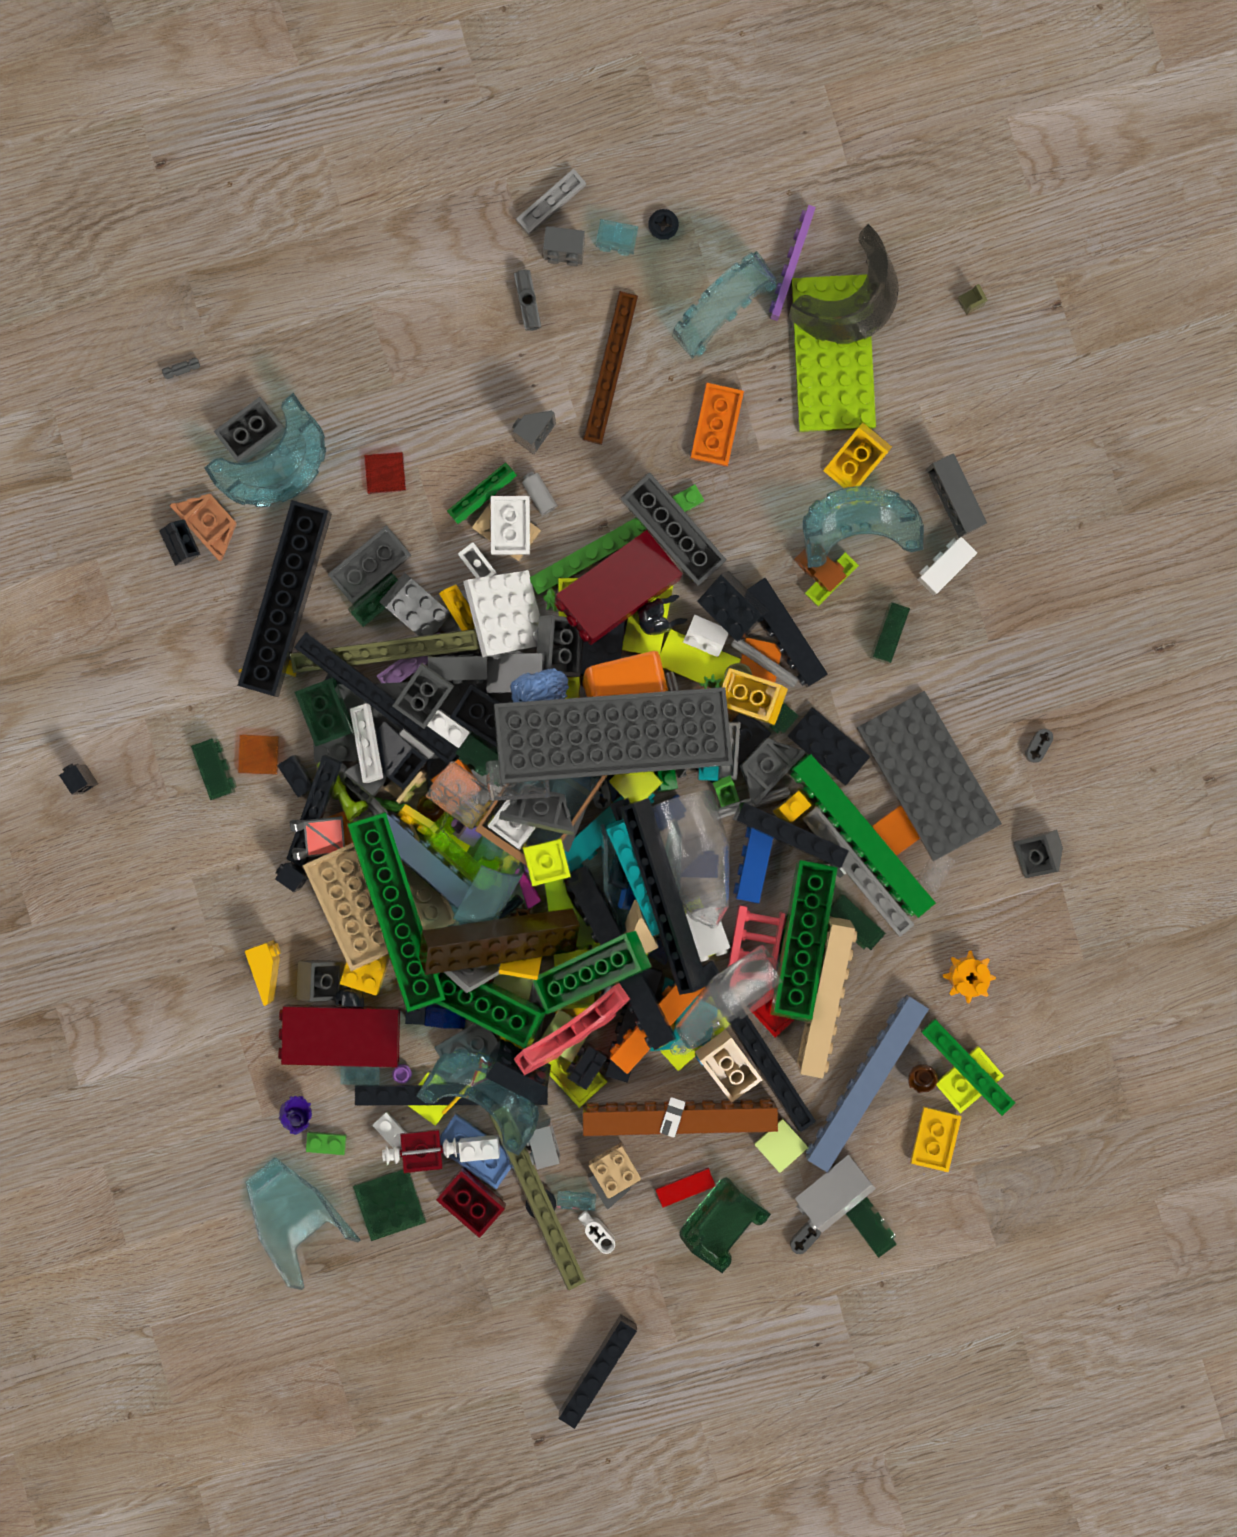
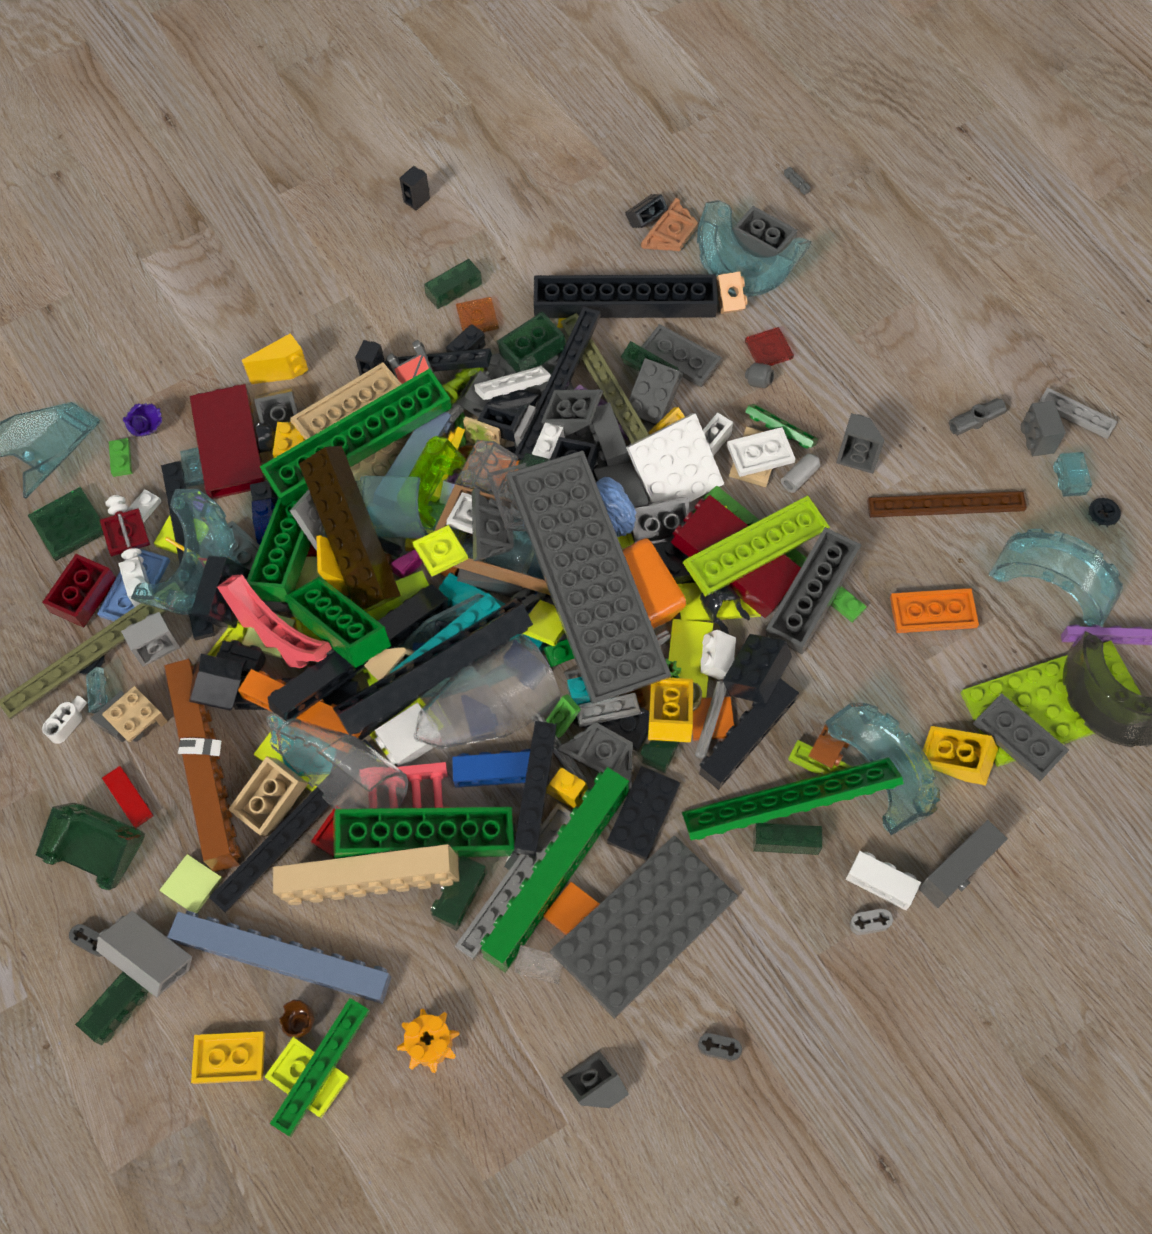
camera: 75 degrees right, 25 degrees down
(303, 490) = (727, 303): none -> light nougat brick
(418, 494) = (759, 375): none -> dark grey head
(614, 1093) = (215, 682): none -> black slope
(619, 567) = (755, 545): none -> lime plate
(860, 618) = (791, 798): none -> green plate
(861, 400) = (1021, 737): none -> dark grey plate
(981, 588) = (872, 927): none -> light grey beam

